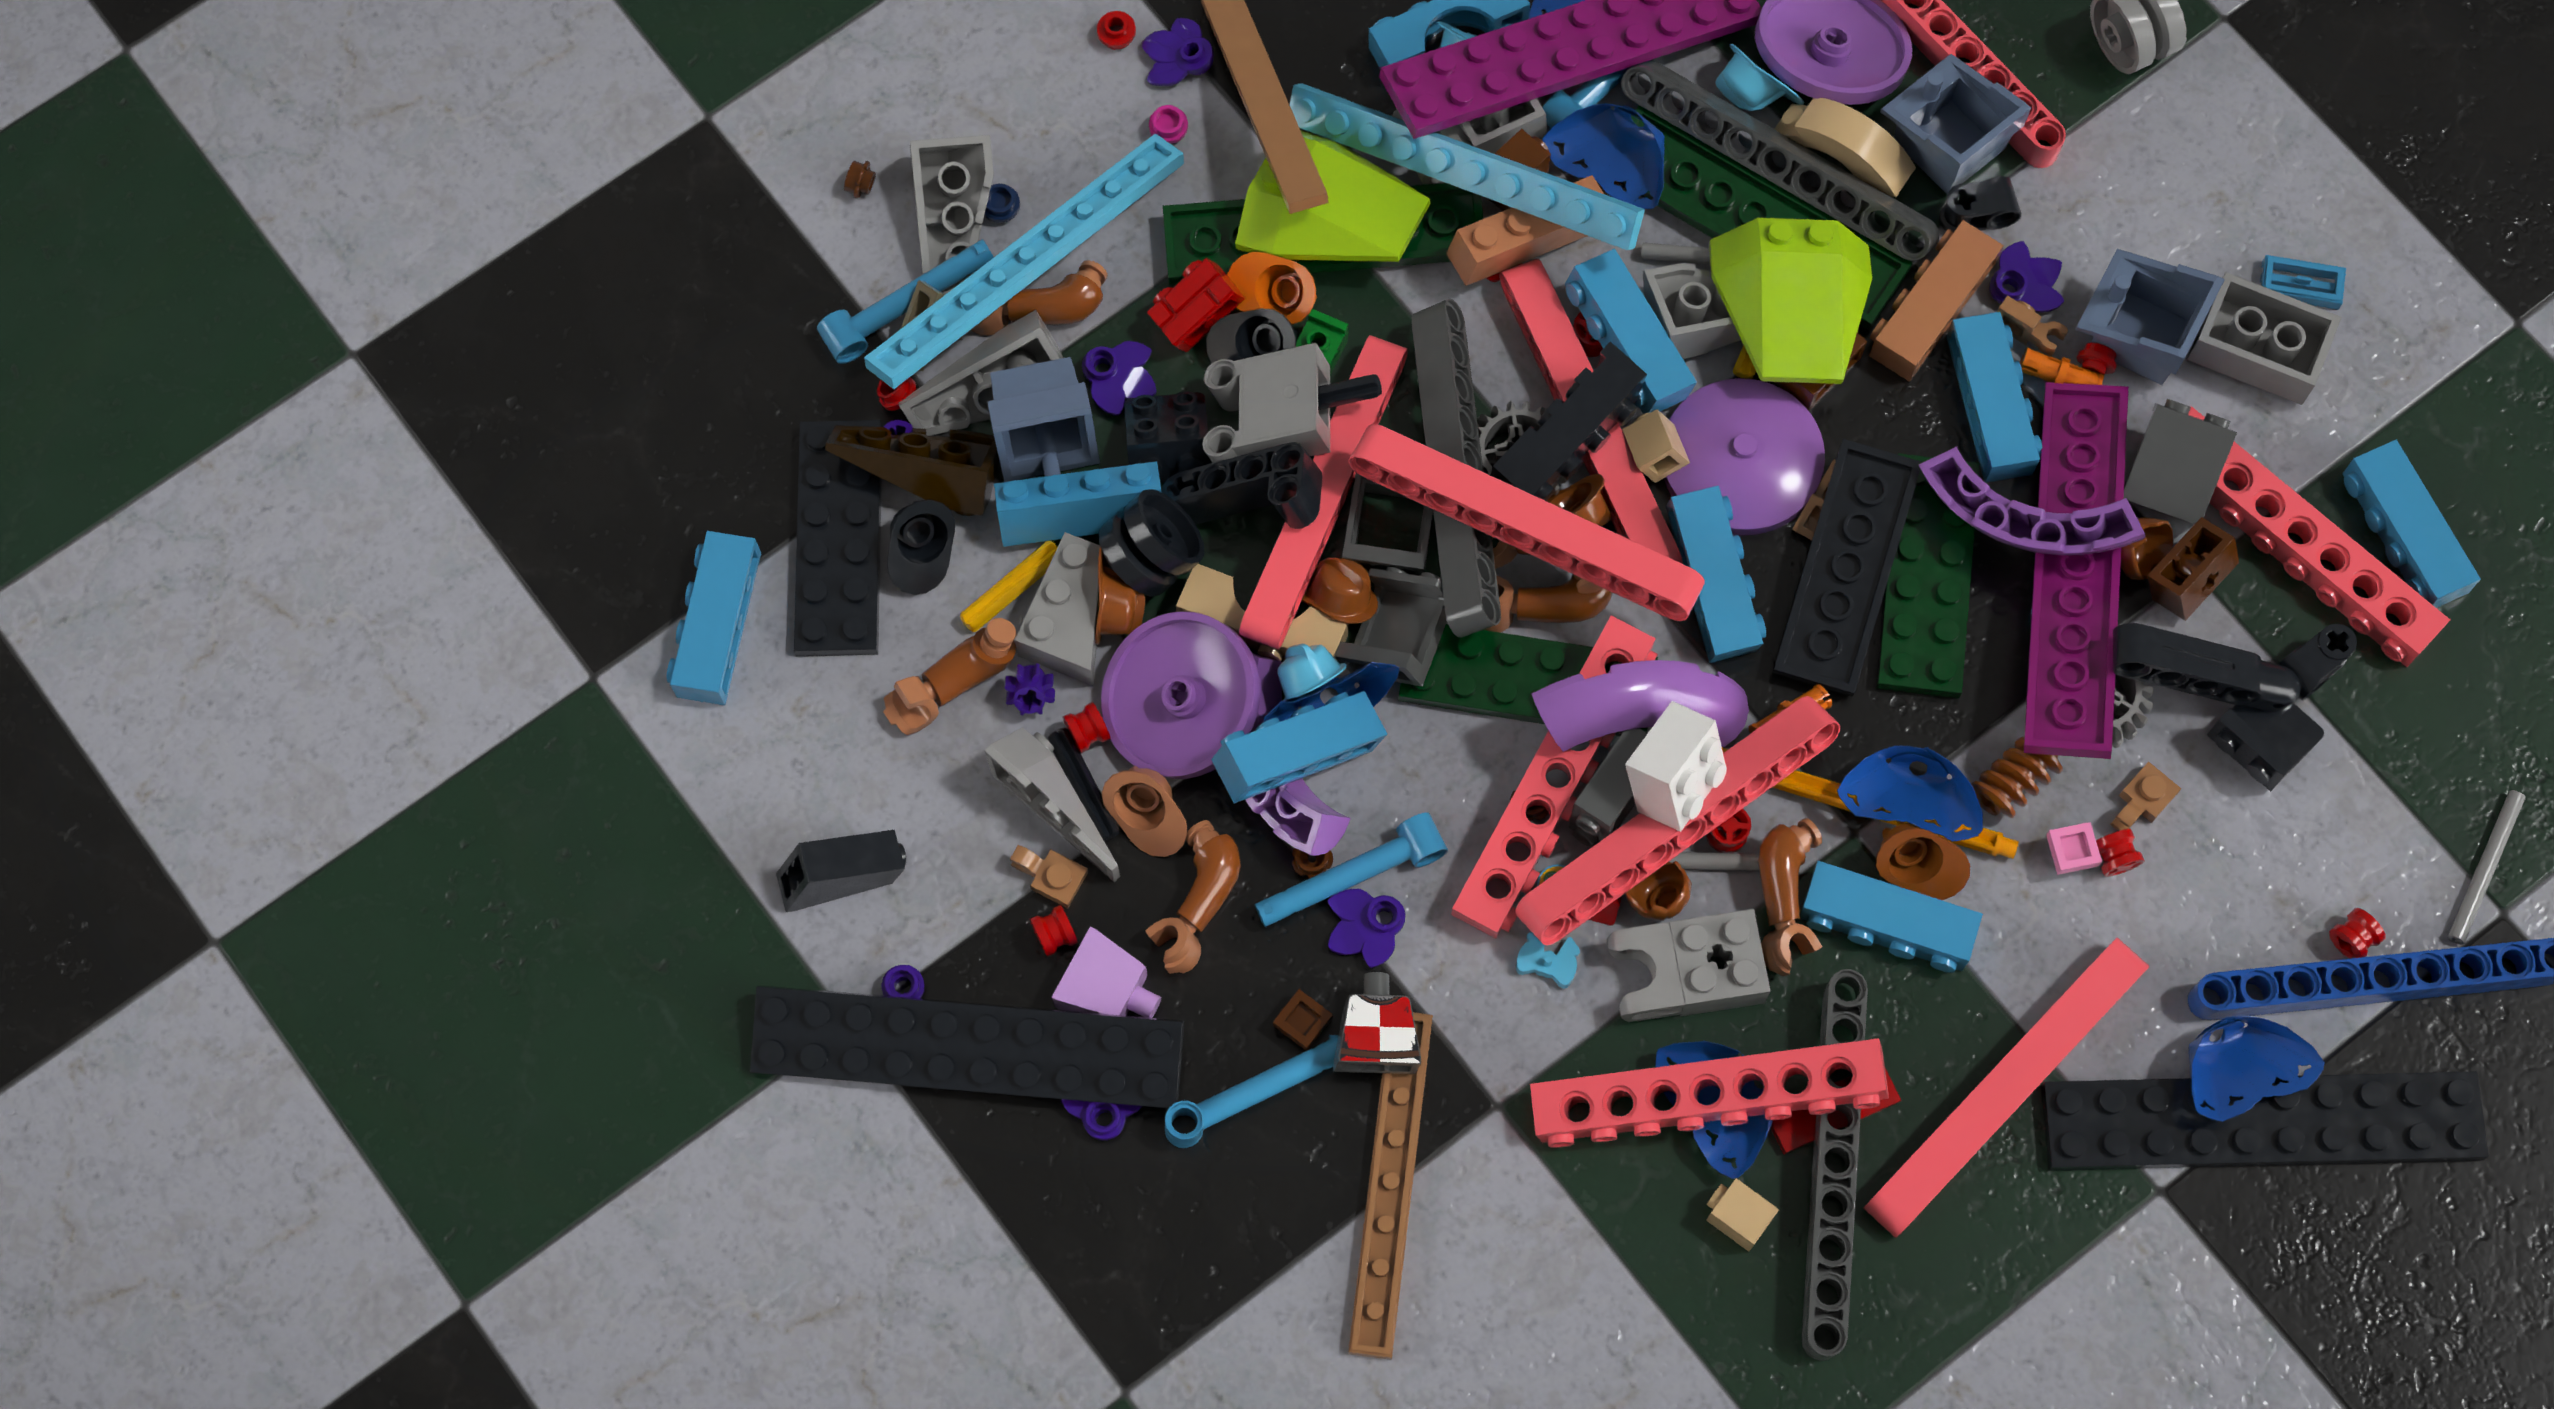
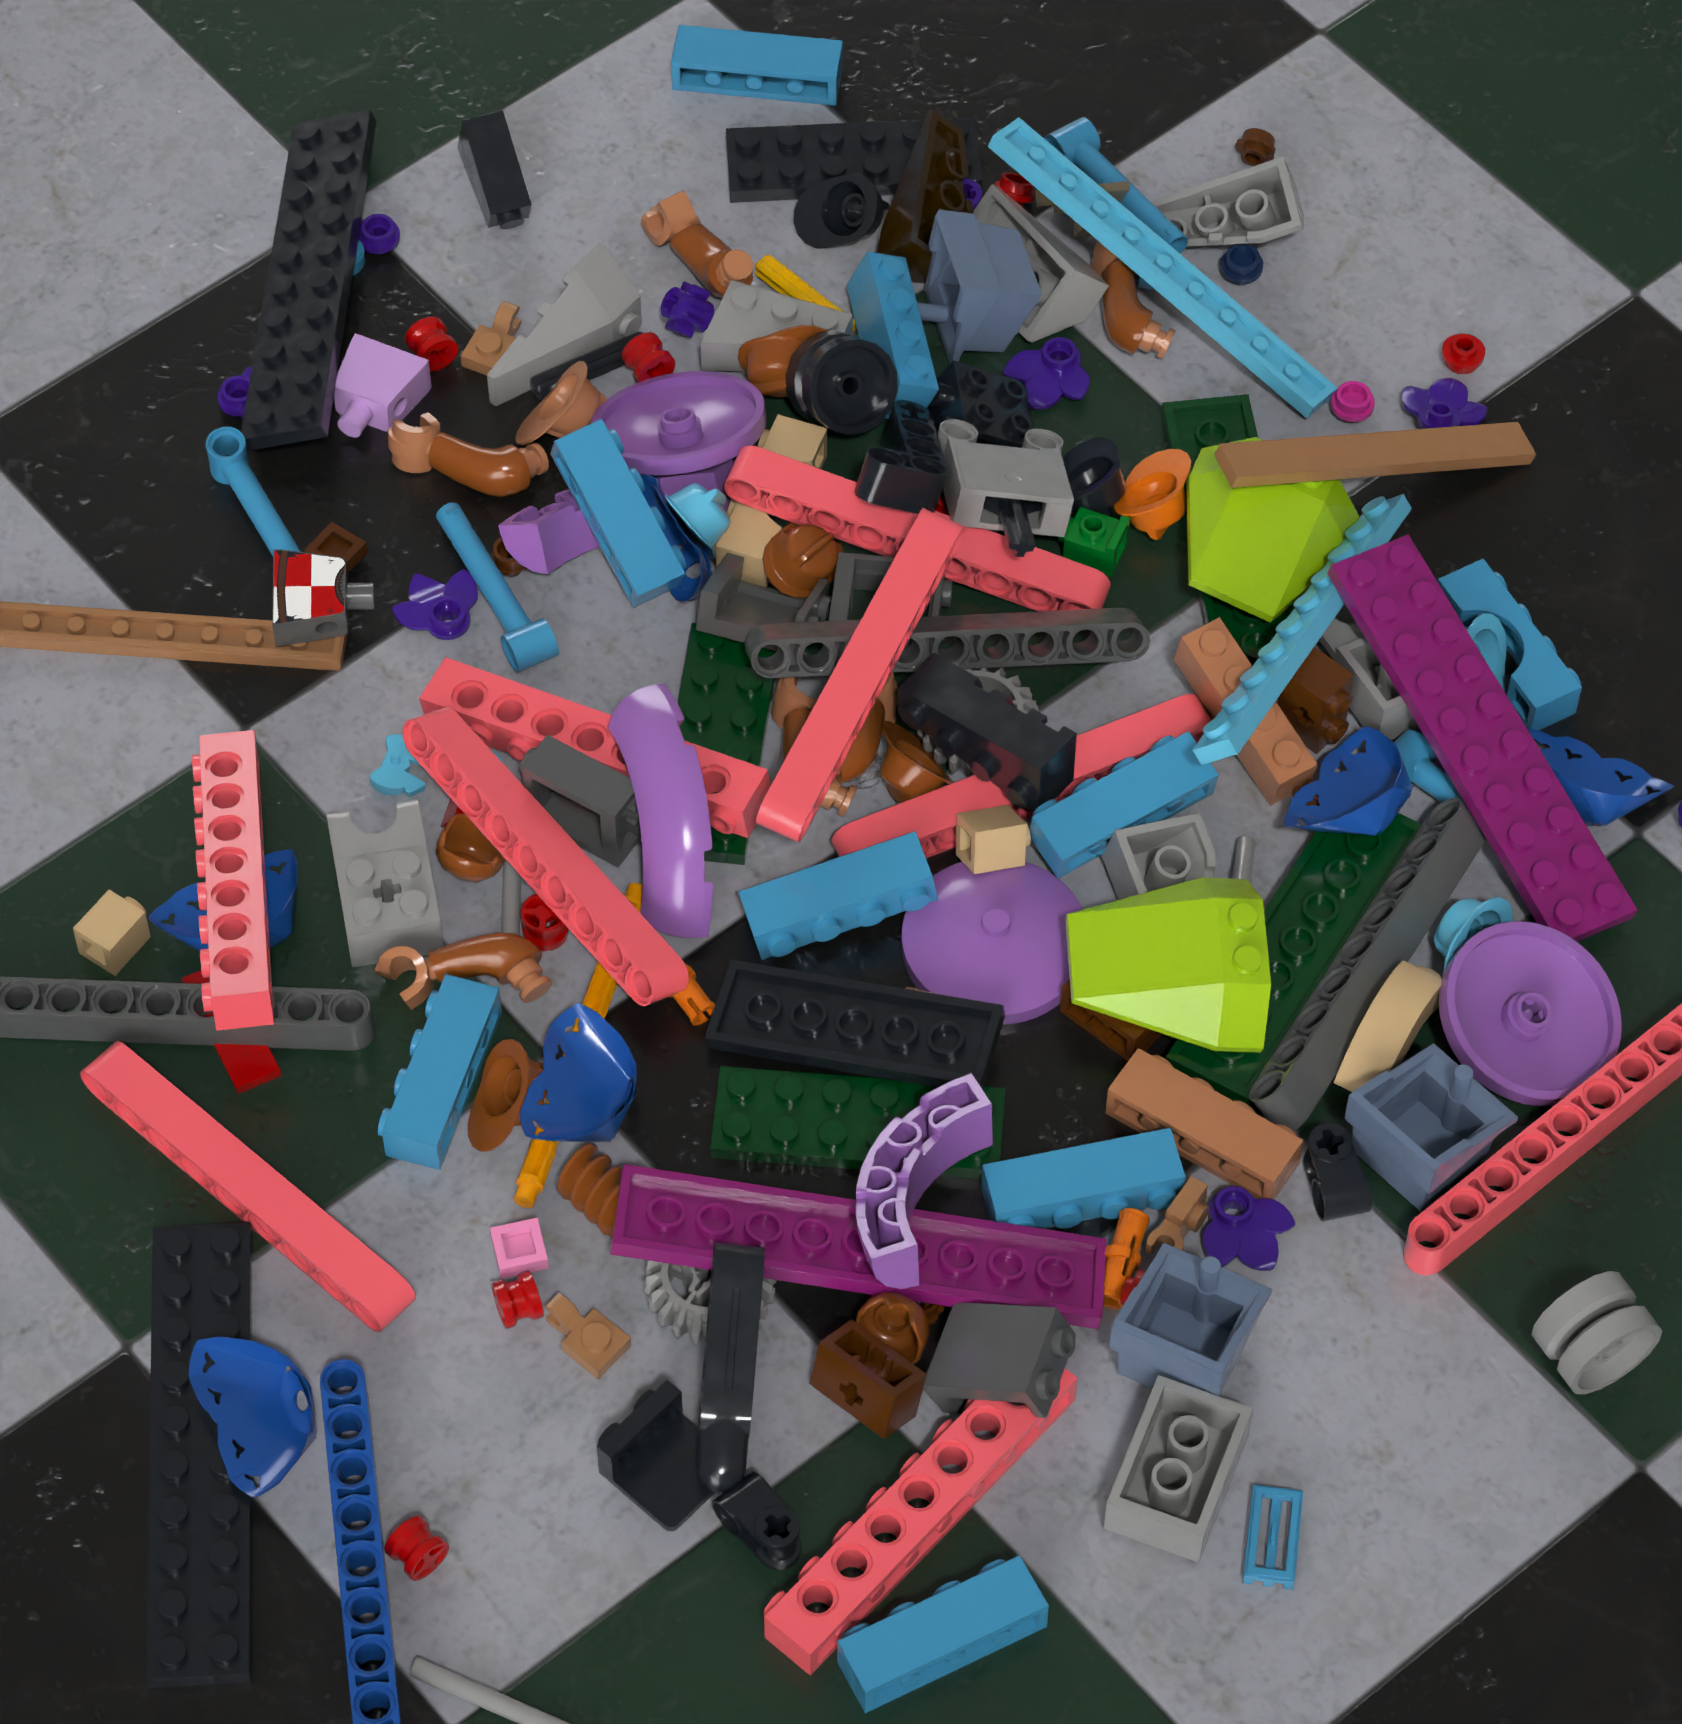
camera: 85 degrees right, 15 degrees down
(1195, 303) = (1130, 419): red brick -> none
(1676, 766) = (583, 813): white brick -> none

